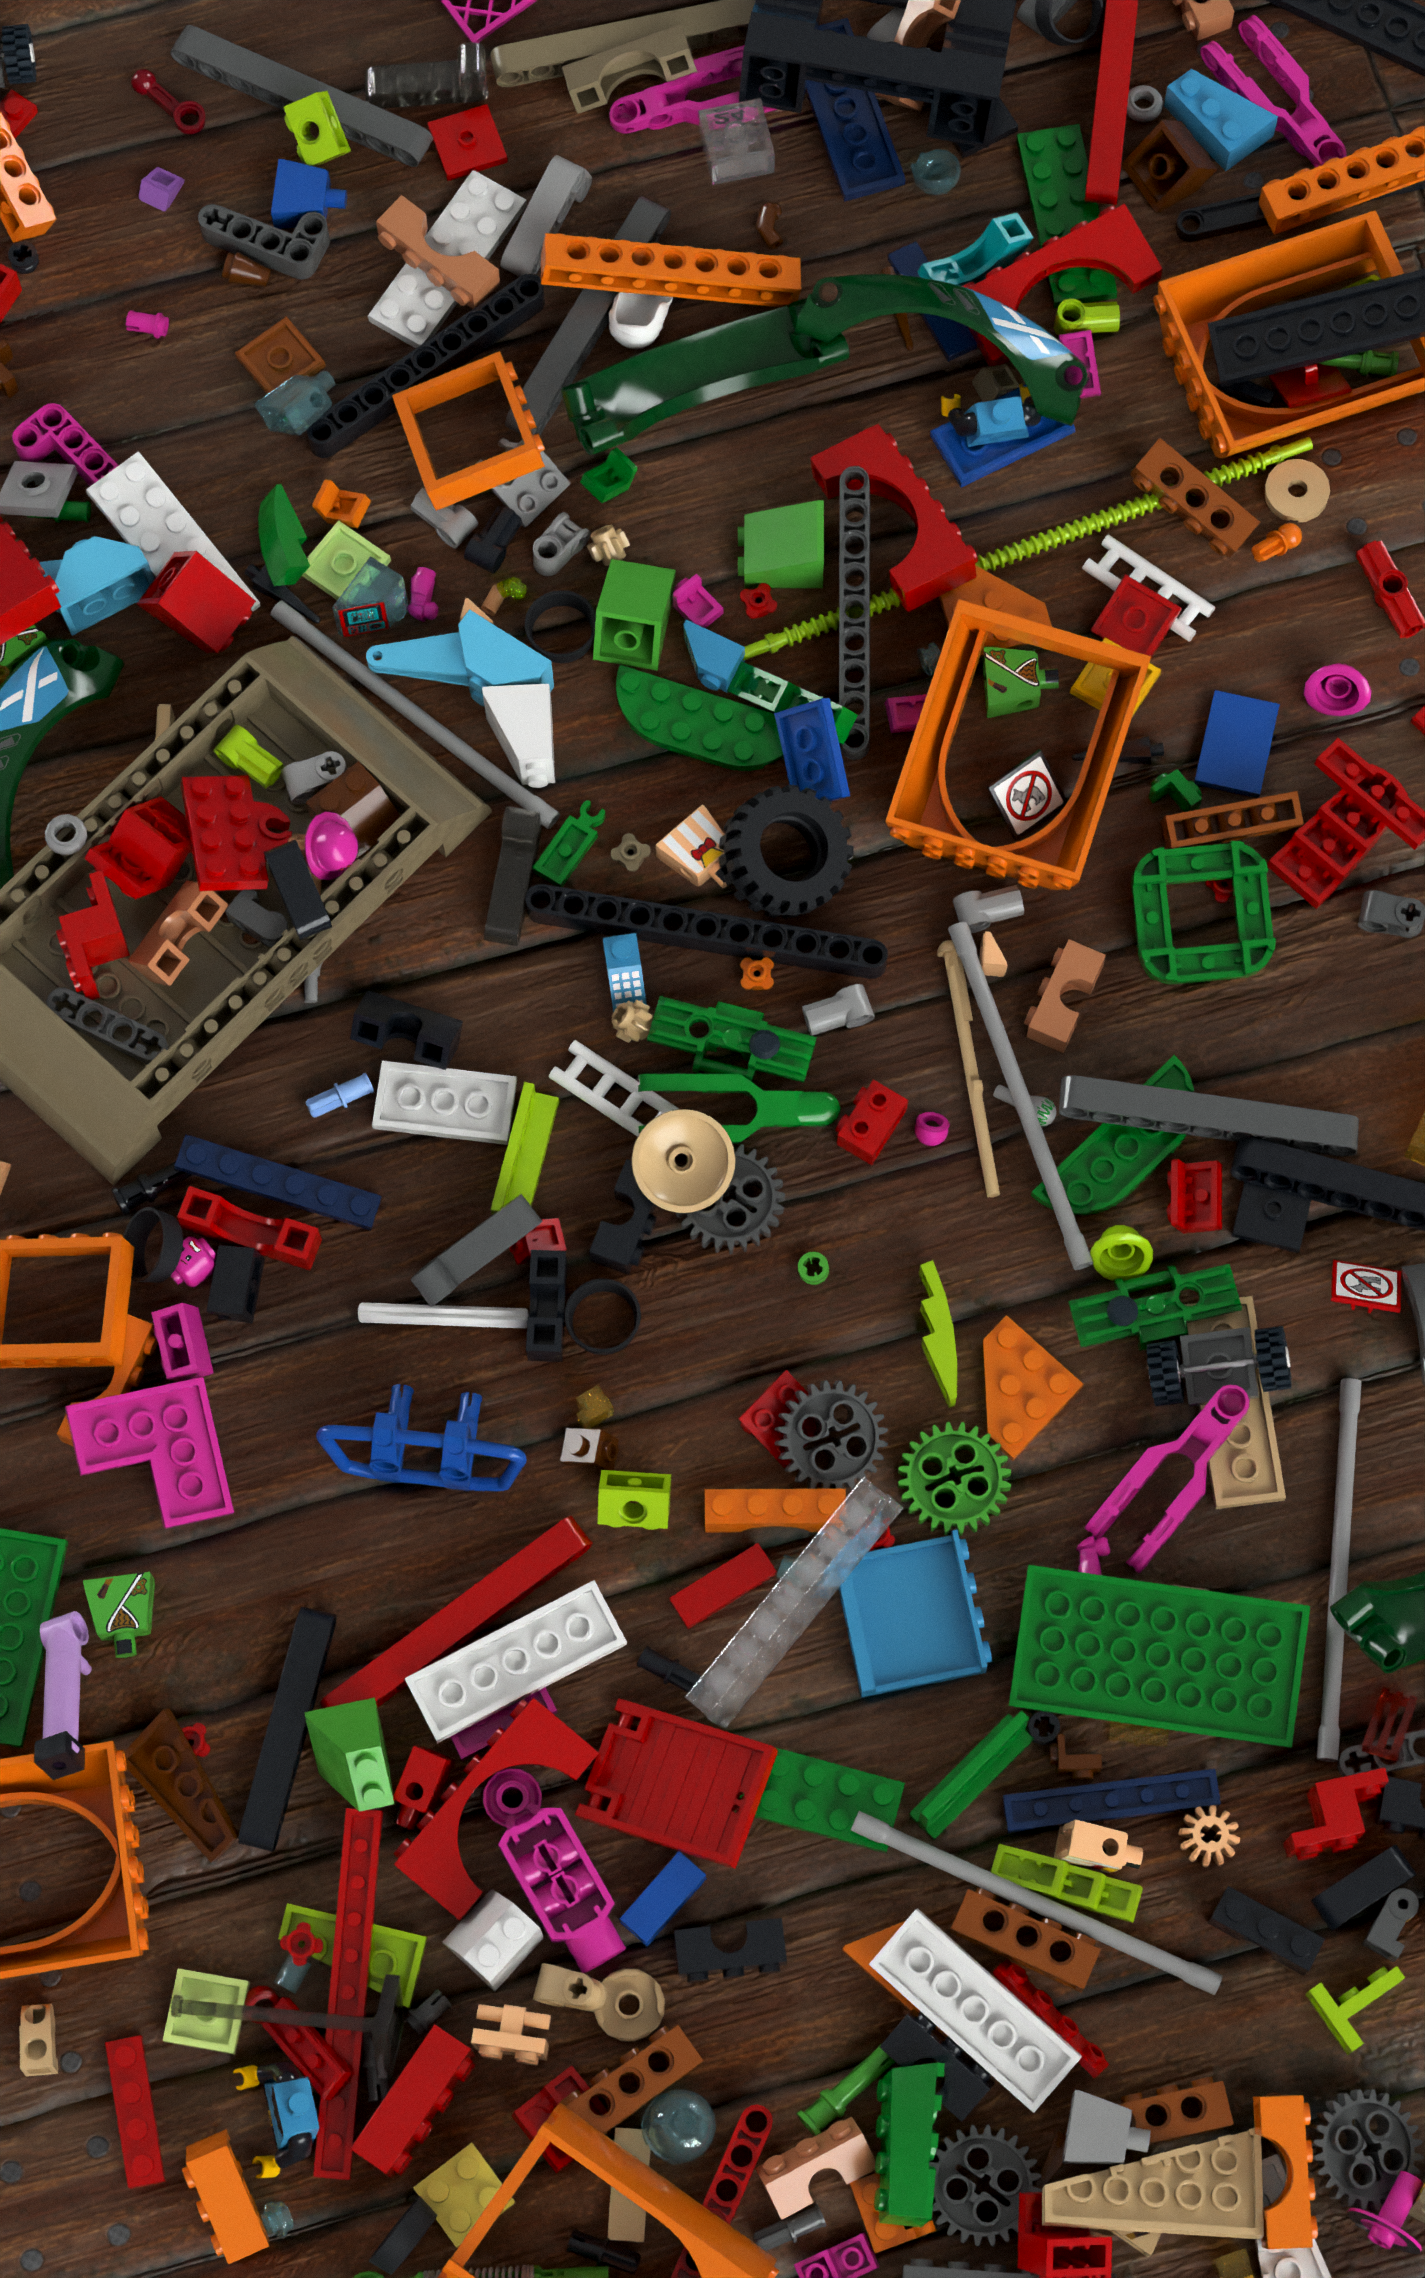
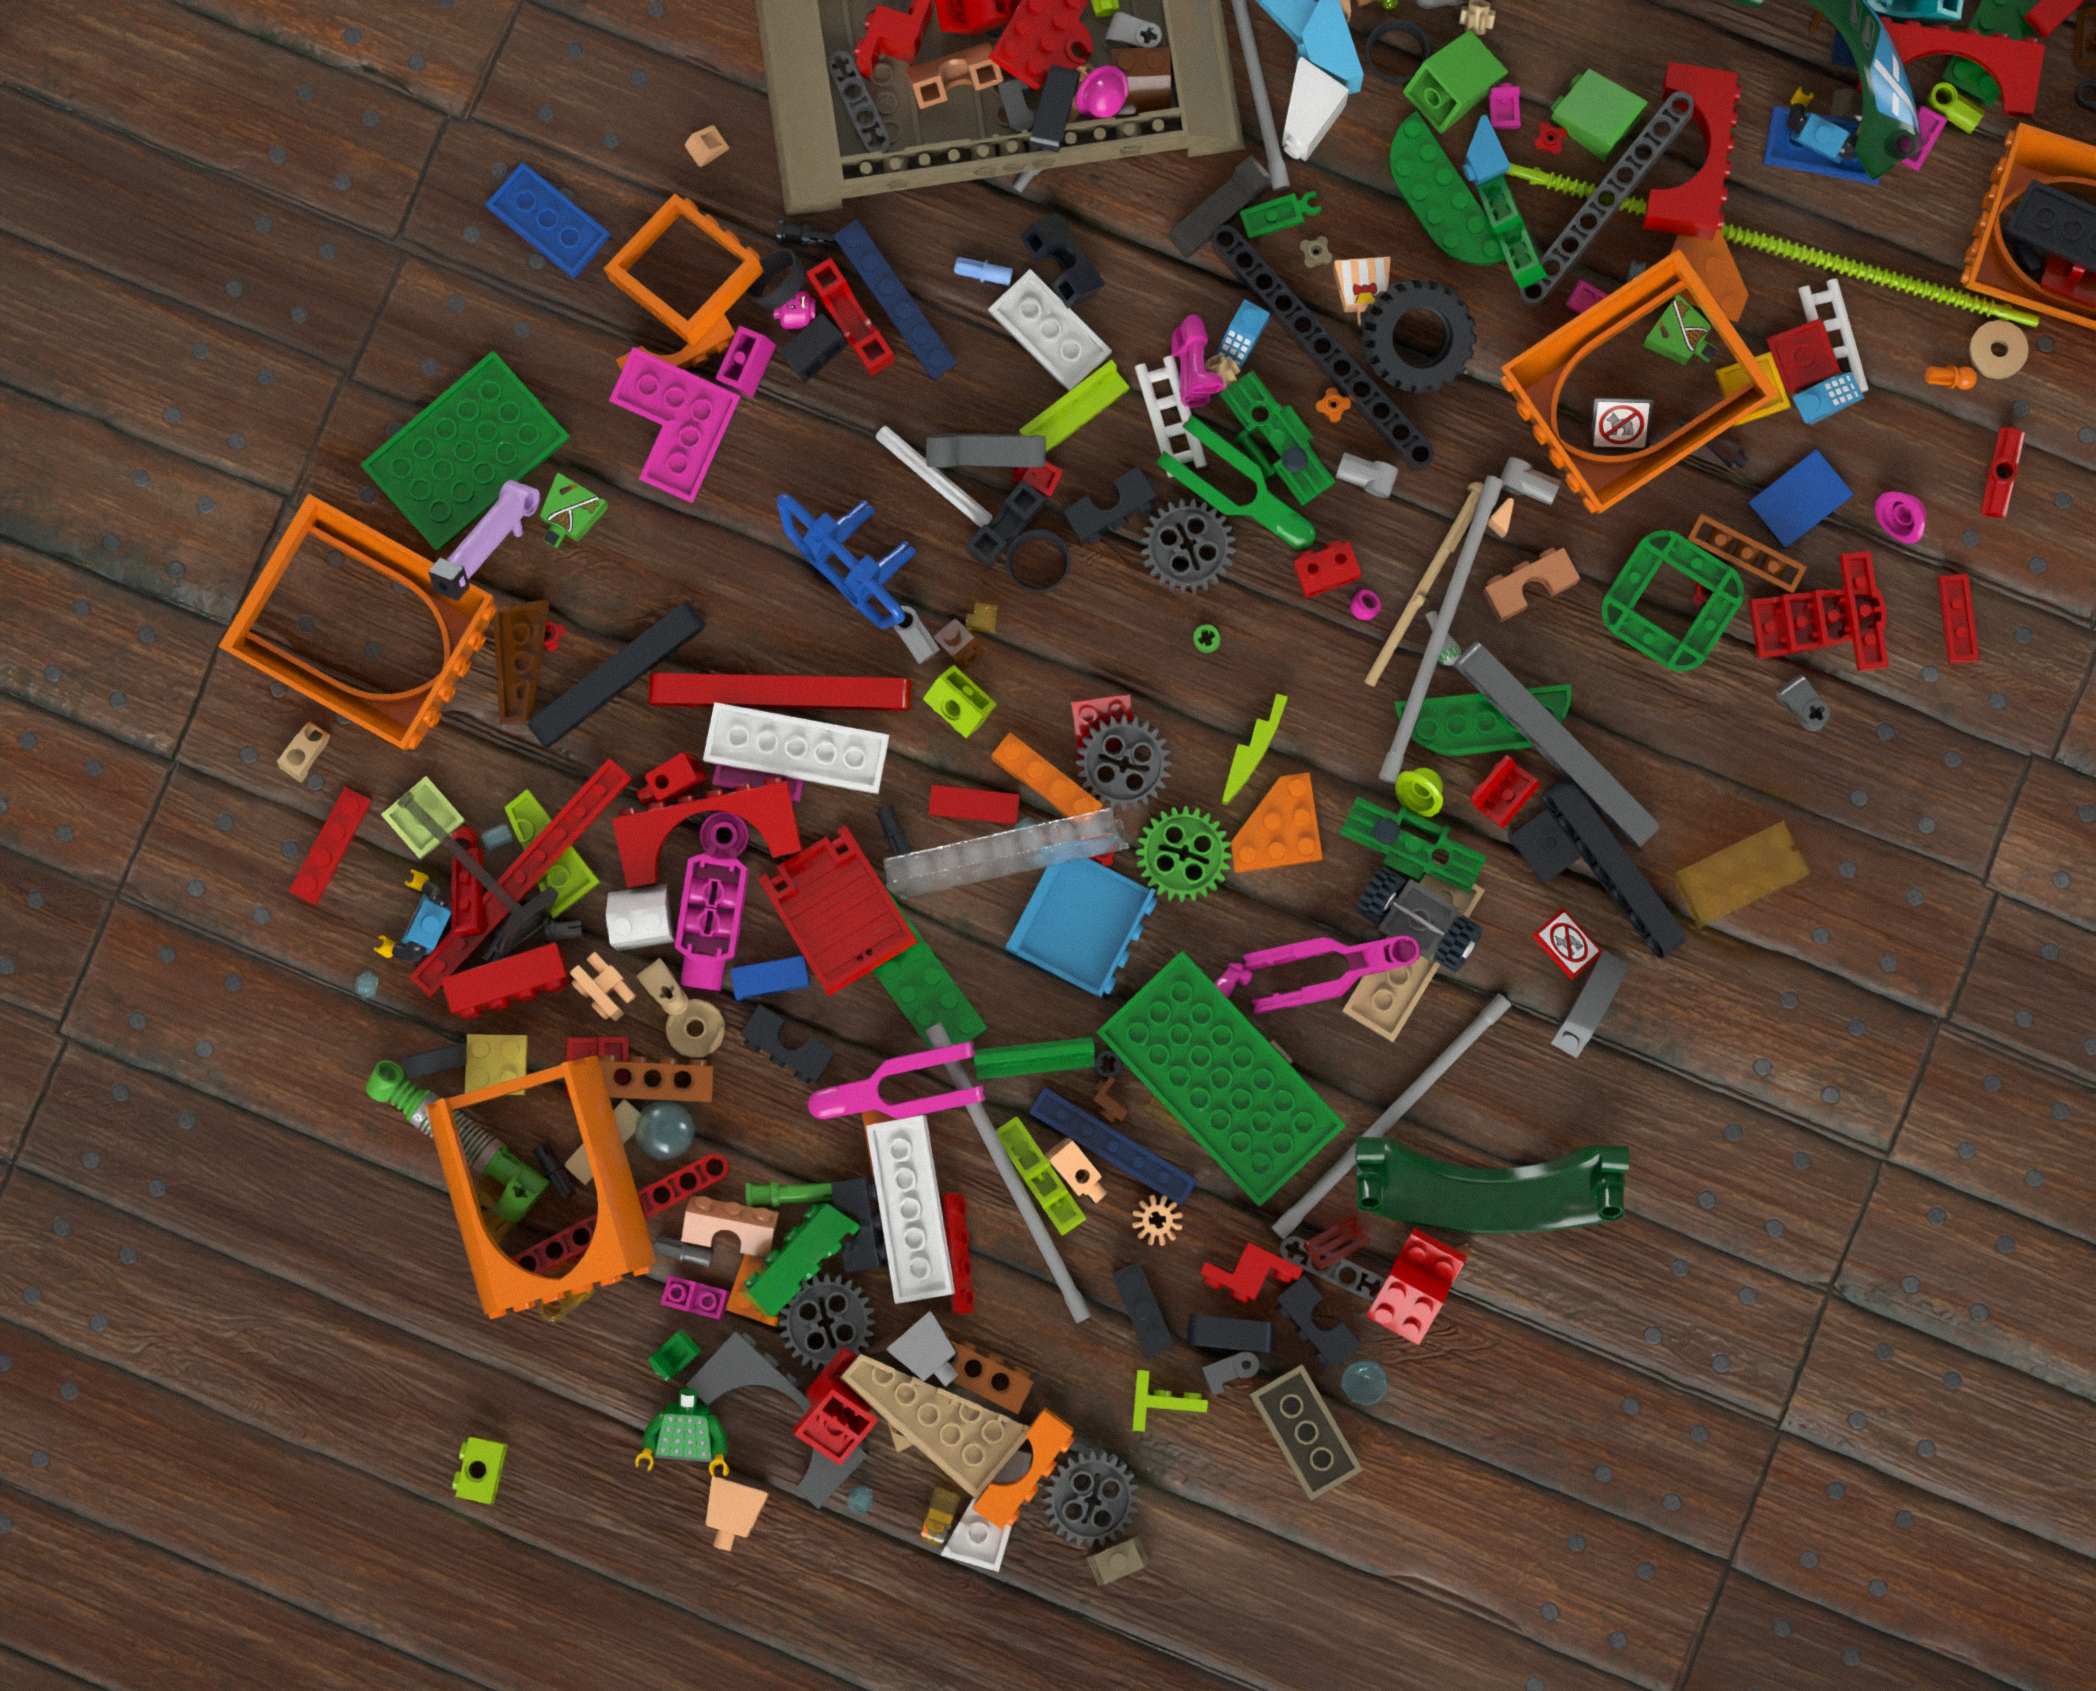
camera: 40 degrees right, 10 degrees up
(224, 2198) = (343, 945): orange wedge -> none
(291, 1941) = (509, 817): red plate -> none
(352, 1752) = (644, 725): bright green slope -> none
(547, 1473) = (917, 638): none -> light grey piece
(616, 1043) = (1195, 381): none -> dark pink piece
(708, 1163) = (1167, 518): tan dish -> none
(813, 749) = (1494, 278): blue tile -> none
(843, 1935) = (865, 1095): none -> dark pink piece
(1070, 1973) = (954, 1152): dark orange brick -> none
(1183, 792) = (1733, 506): green bracket -> none
(1189, 637) = (1828, 398): none -> dark azure slope
(1212, 499) = (1933, 343): dark orange brick -> none
(1386, 2226) = (1073, 1551): dark pink piece -> none

